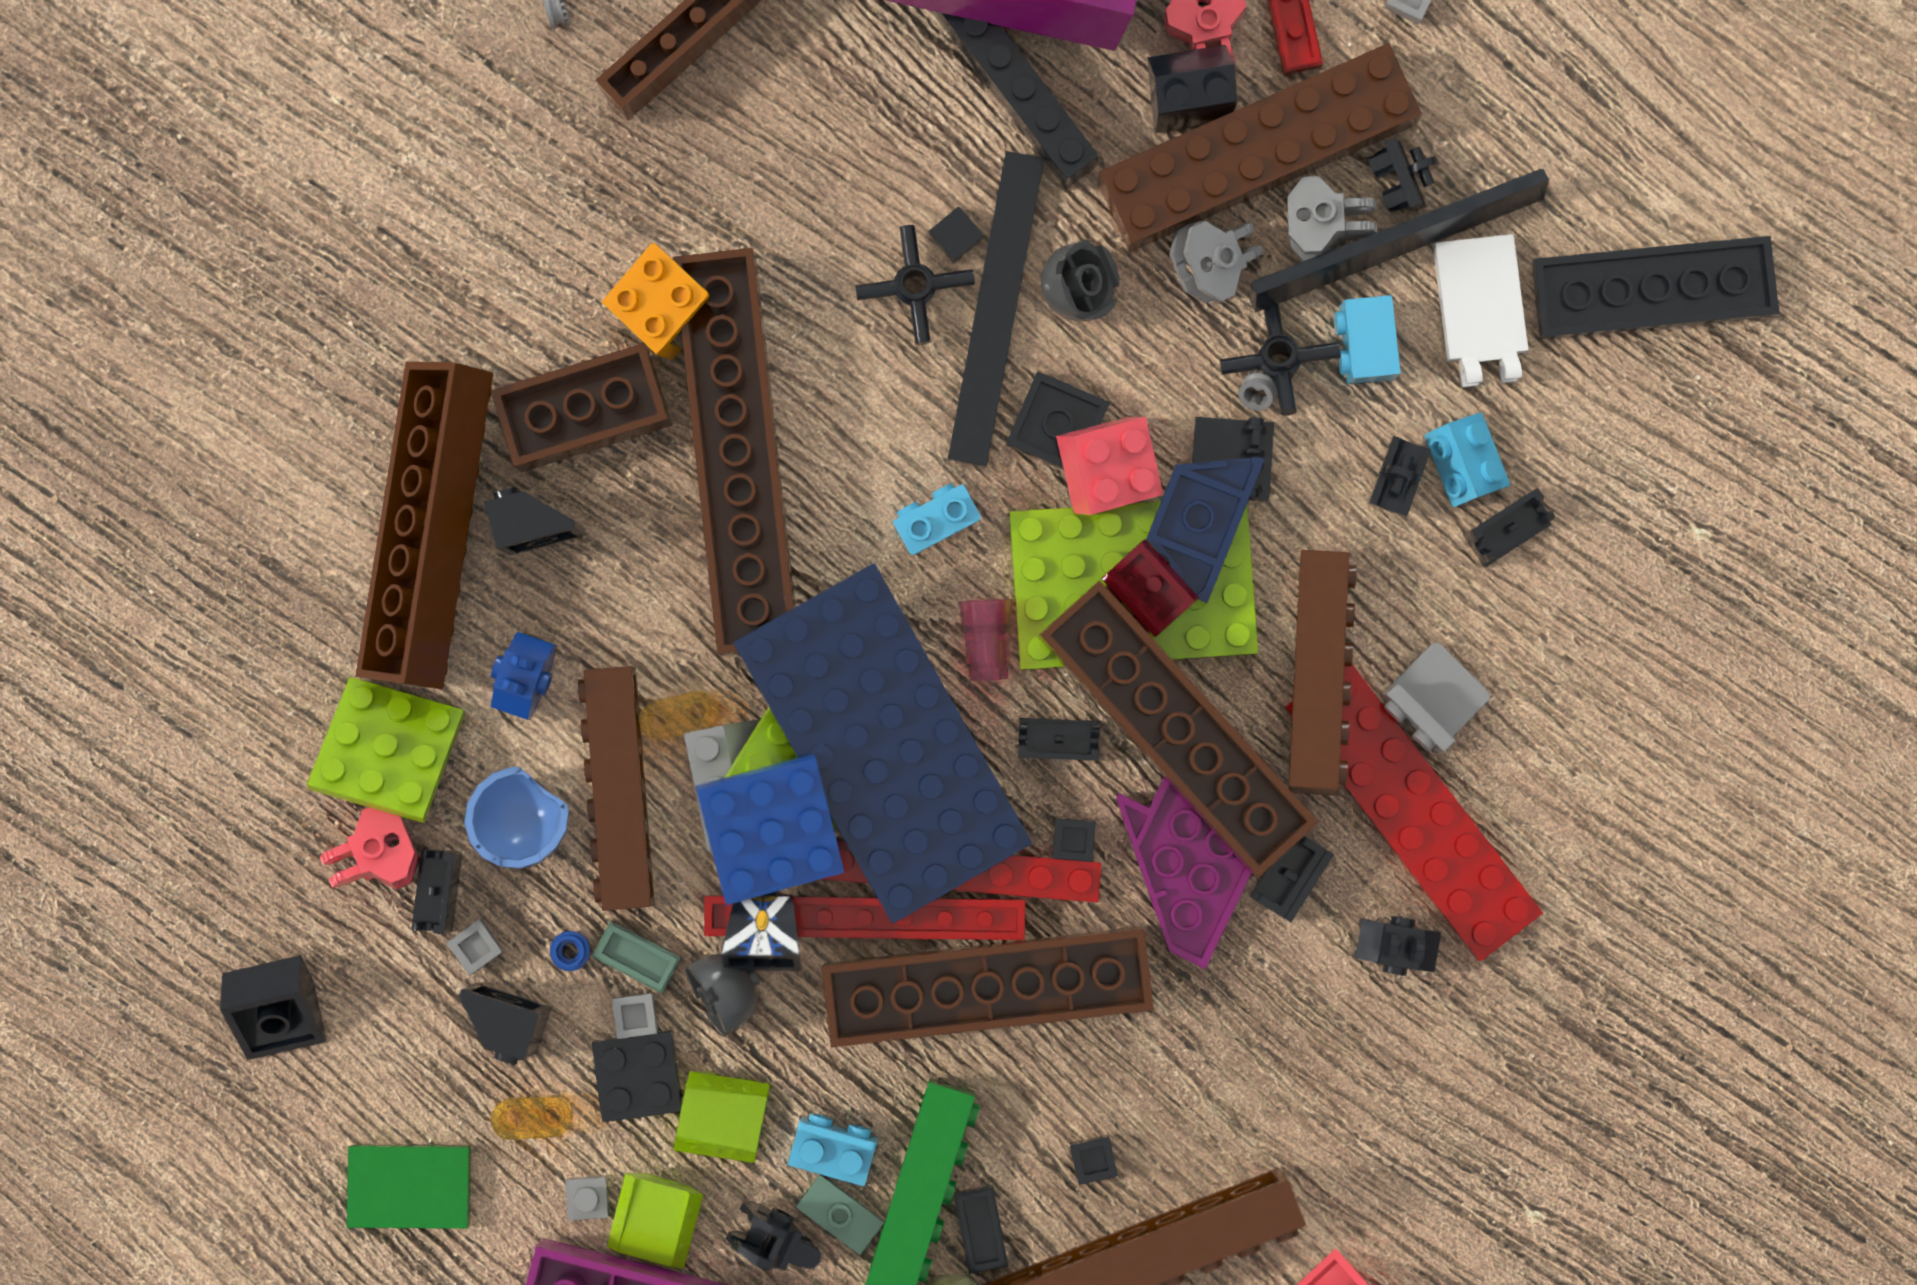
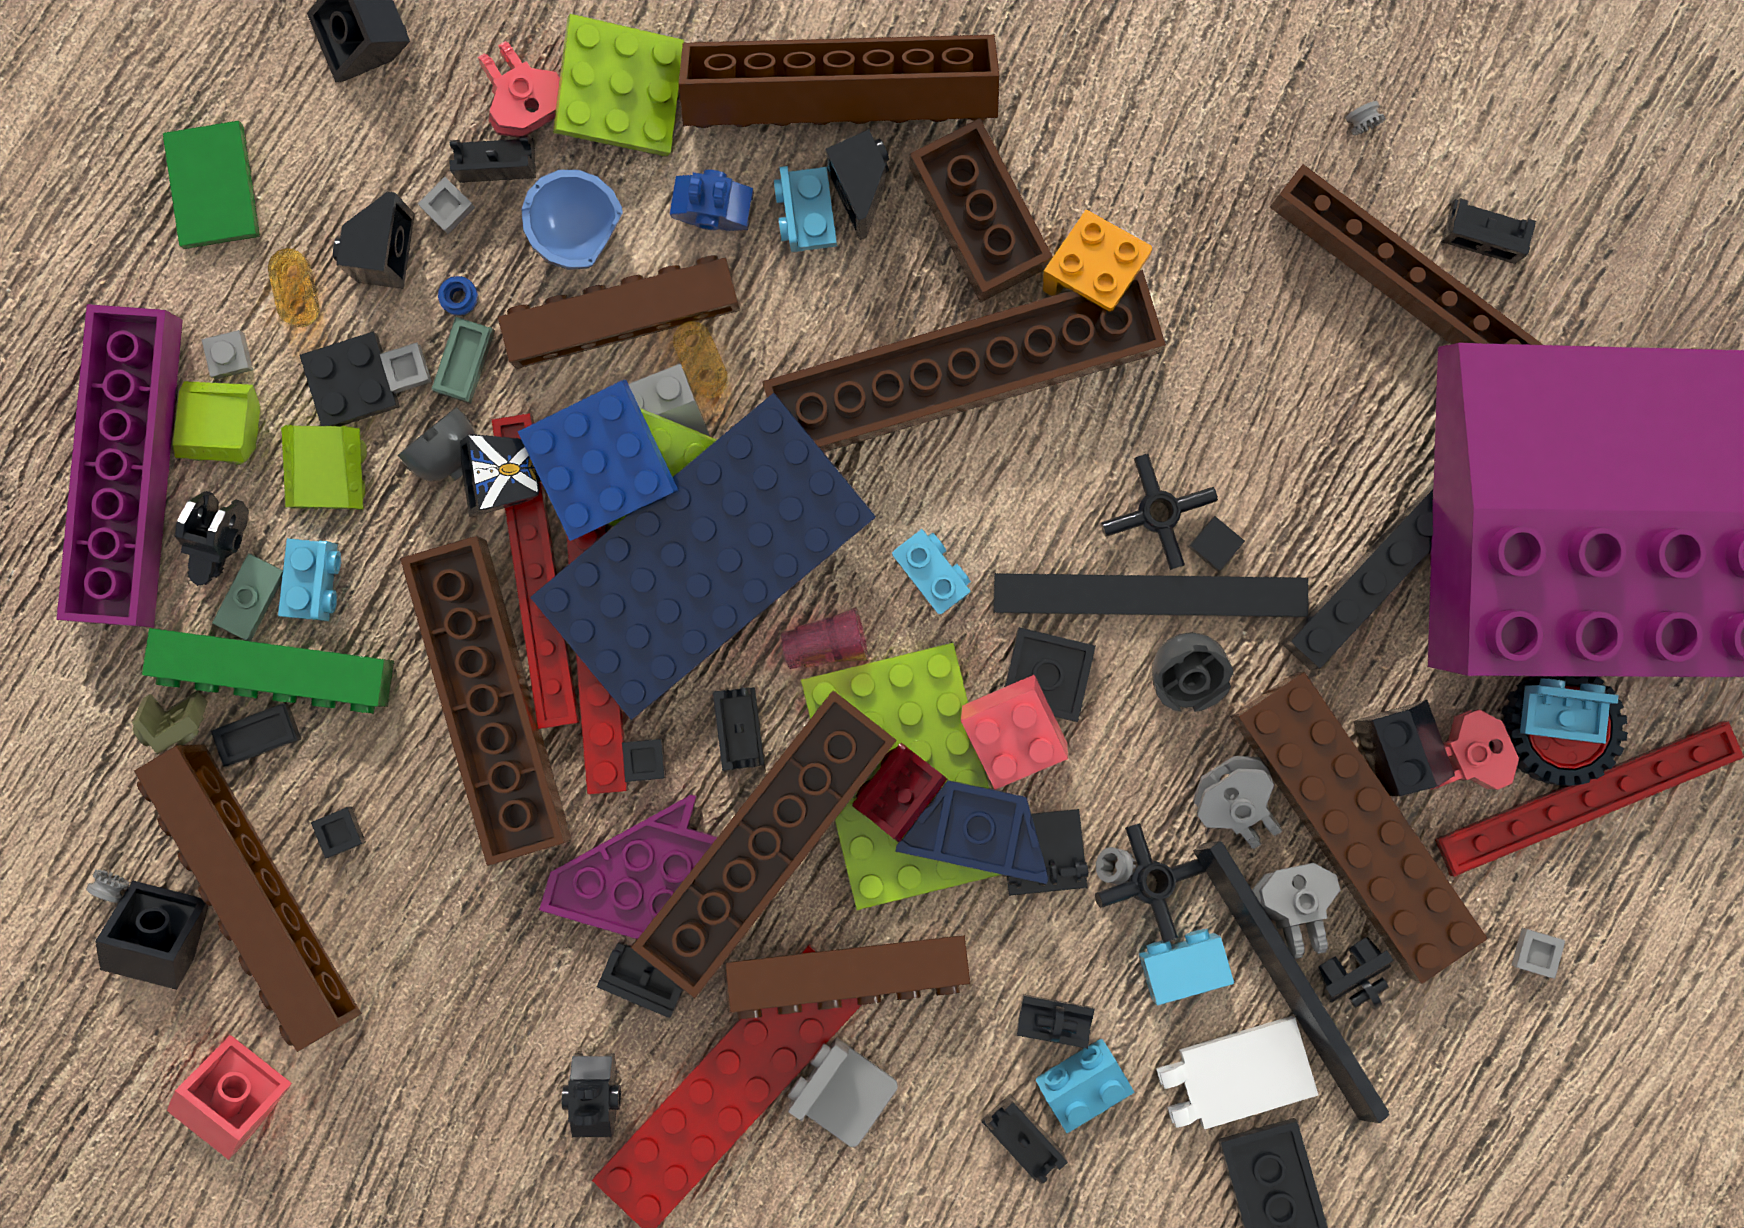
camera: 85 degrees right, 0 degrees up
(545, 582) = (807, 209): none -> medium azure bracket

